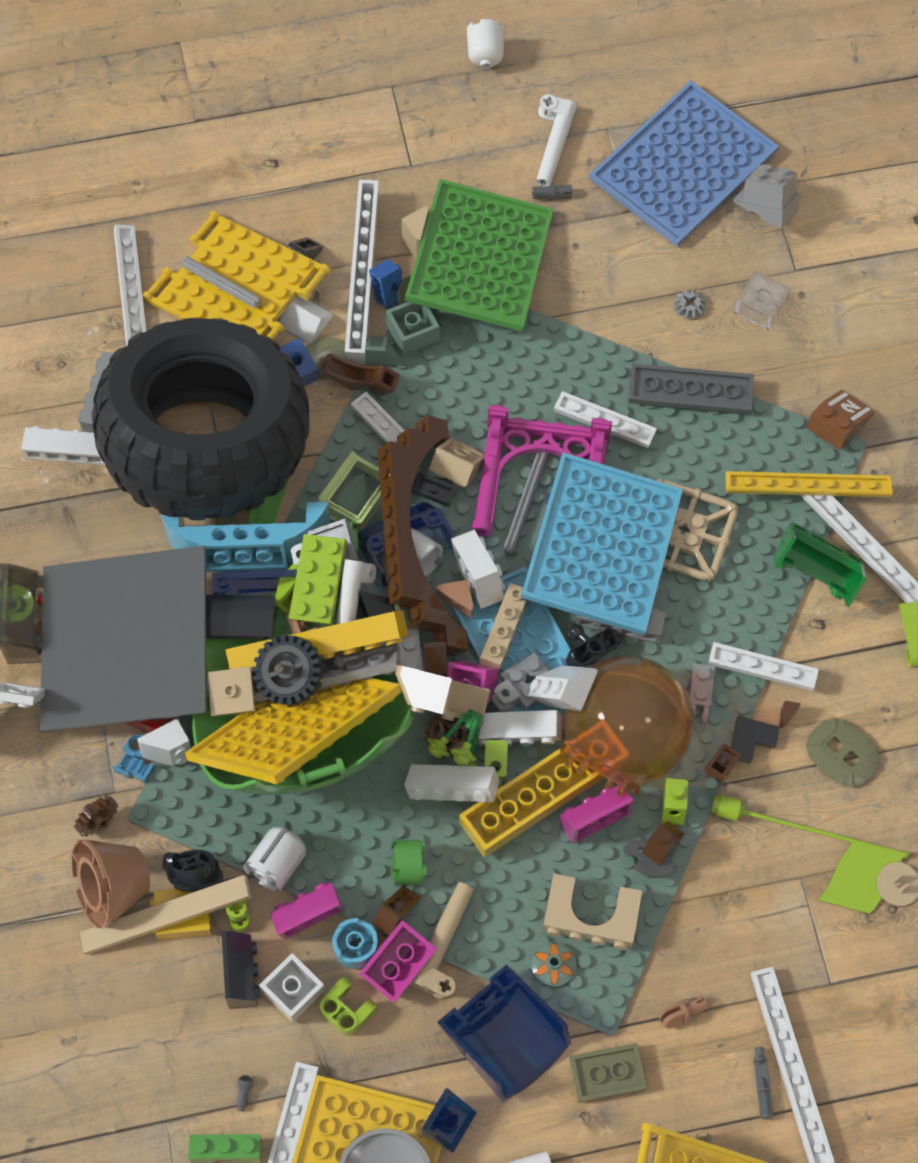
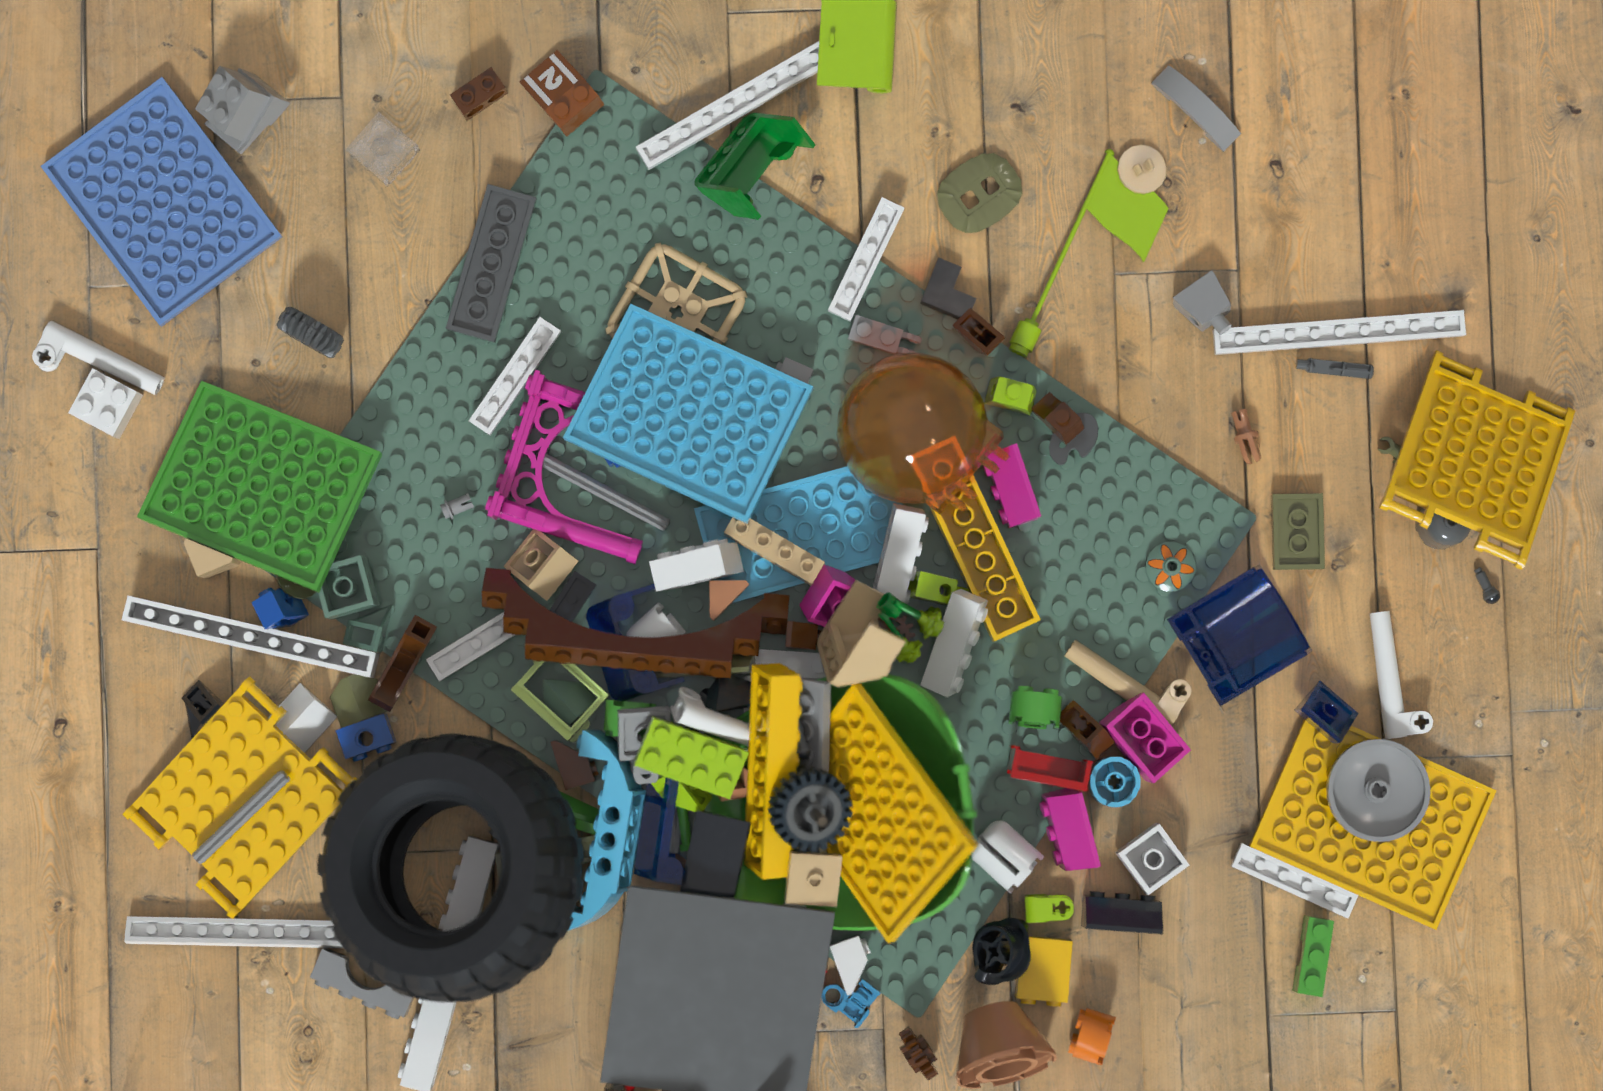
camera: 85 degrees left, 20 degrees up
(128, 960) = (1092, 1036): none -> orange brick
(166, 914) = (1051, 984): tan tile -> none
(245, 1084) = (1244, 925): dark grey piece -> none
(295, 508) = (573, 769): none -> reddish brown slope
(342, 1012) = (1191, 816): lime piece -> none
(356, 878) = (1049, 769): none -> red piece
(491, 394) = (454, 506): none -> light grey pin
(513, 685) = (848, 549): light grey plate -> none
(521, 149) = (105, 403): none -> white brick
(552, 191) = (174, 377): dark grey pin -> none
(562, 921) = (1148, 488): tan arch -> none
(563, 687) = (871, 494): white slope -> none
(591, 648) = (822, 463): black piece -> none
(606, 271) = (310, 332): none -> dark grey gear
(690, 311) = (379, 239): light grey gear -> none
(788, 710) = (924, 244): reddish brown slope -> none
(793, 954) = (1205, 304): none -> light grey torso
(808, 484) = (649, 153): yellow tile -> none
(823, 359) = (479, 94): none -> reddish brown brick

